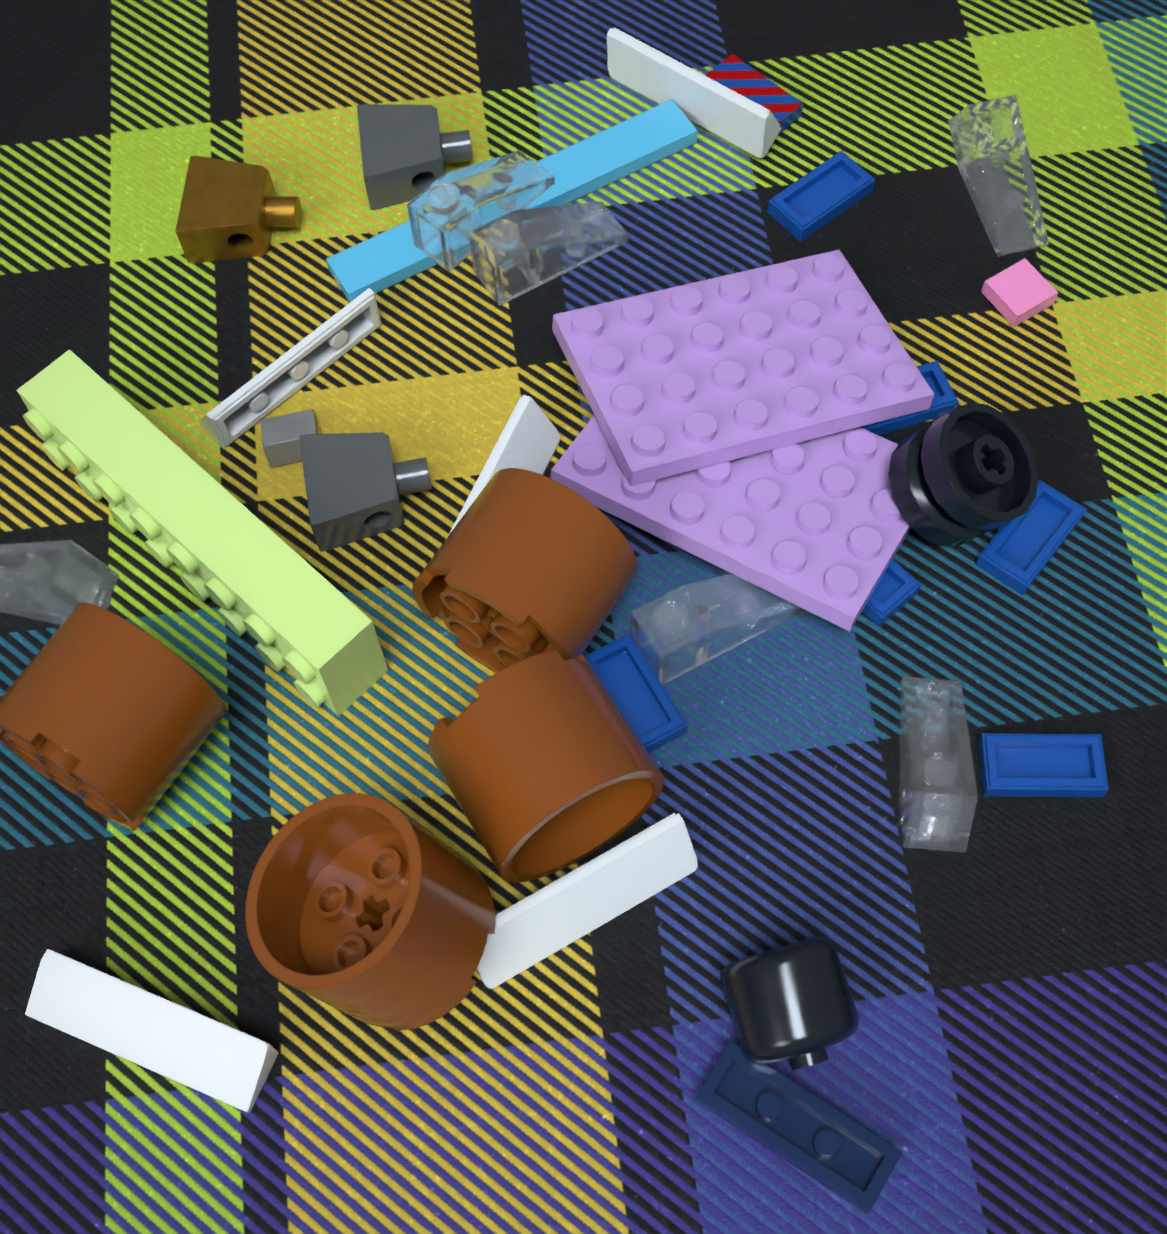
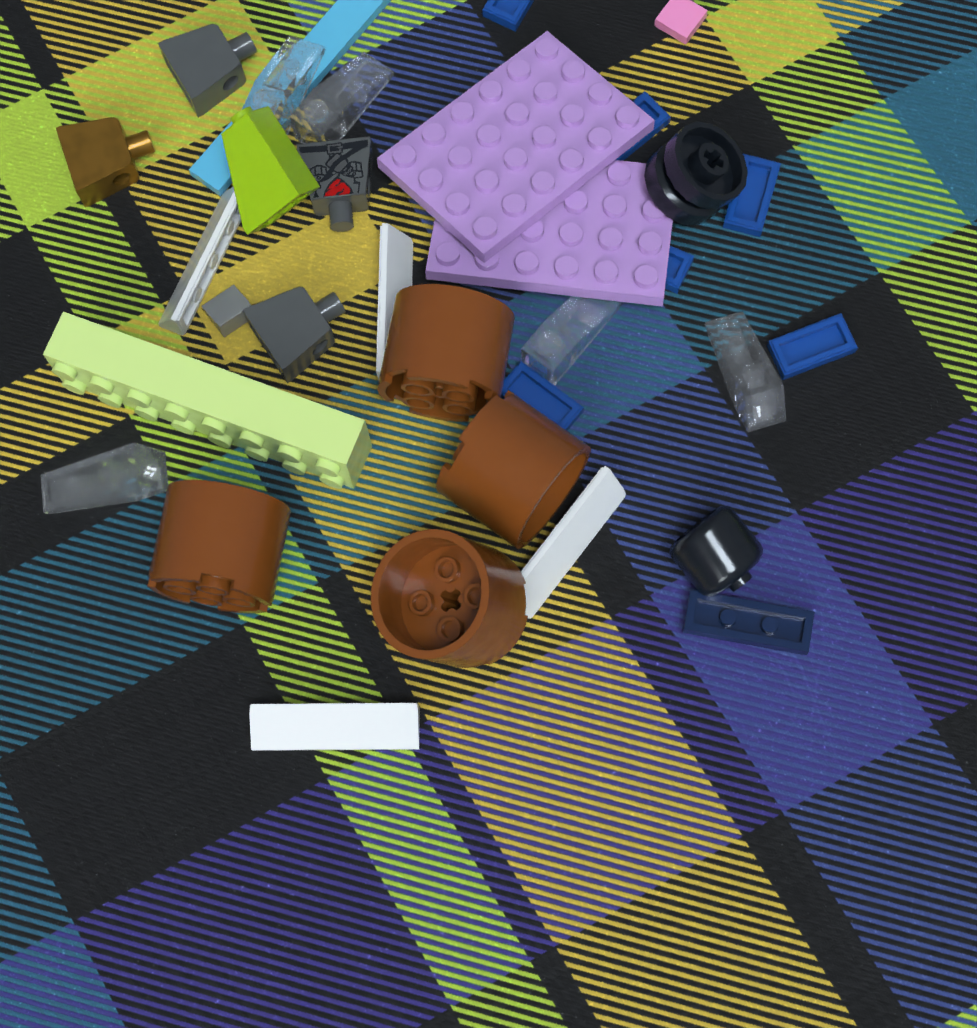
camera: 20 degrees left, 10 degrees up
(405, 278) = (264, 168): none -> lime slope
(499, 328) = (344, 177): none -> dark grey torso

